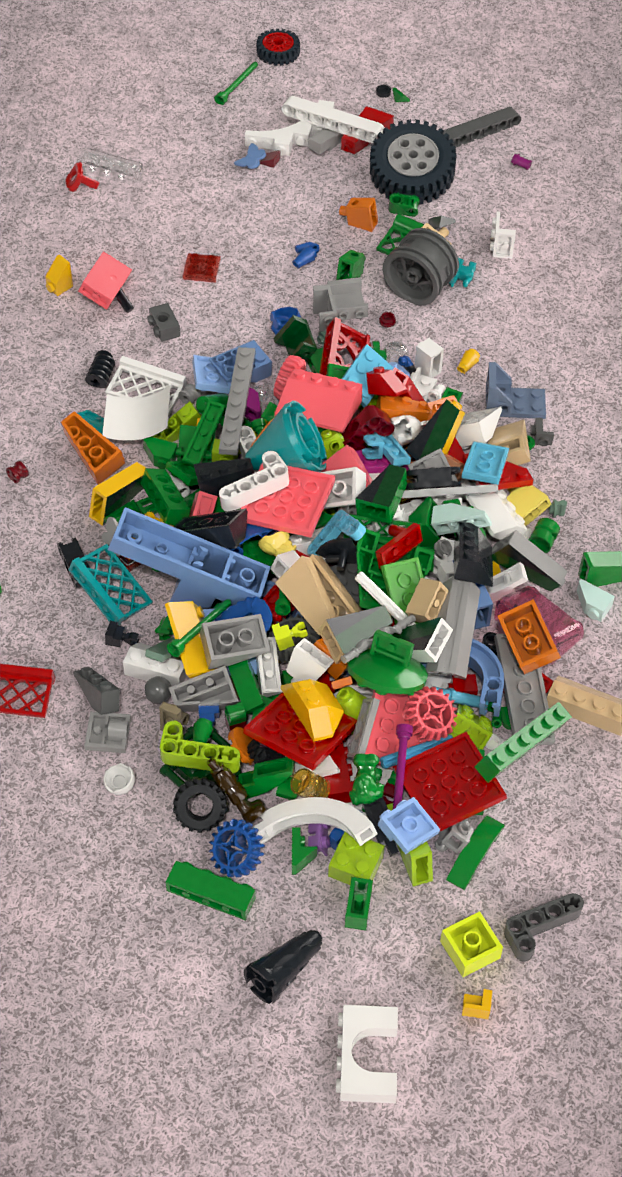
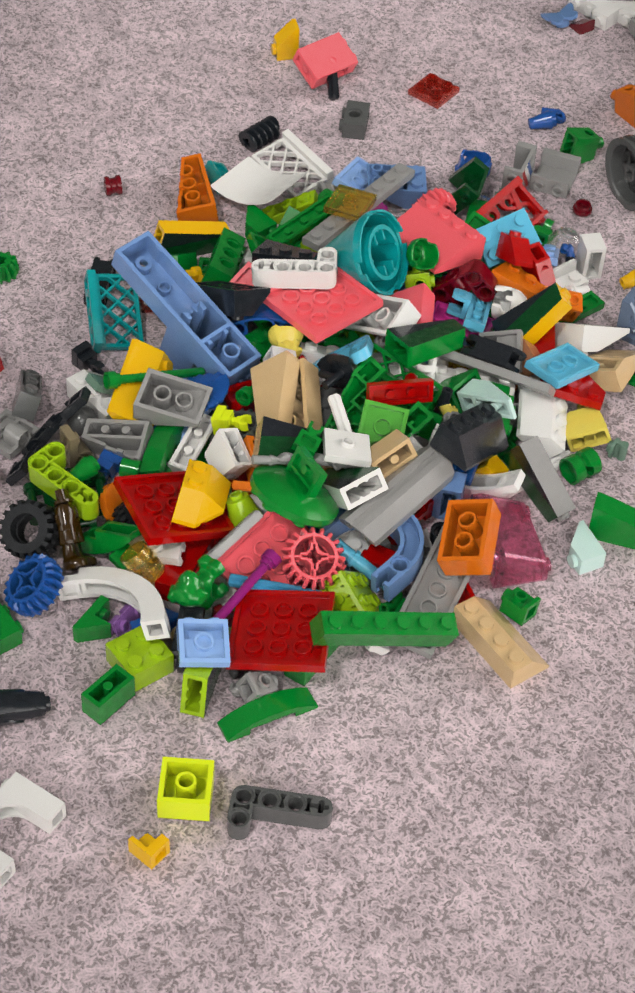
camera: 30 degrees right, 5 degrees down
(138, 727) = (43, 435): none -> black tile
(234, 402) = (349, 202): none -> clear yellow plate
(328, 421) = (422, 254): none -> green hair
(368, 621) = (309, 439): none -> green plate
(399, 612) = (346, 448): none -> white plate
(427, 538) = (444, 401): none -> black arm
(583, 668) = (519, 605): none -> green brick

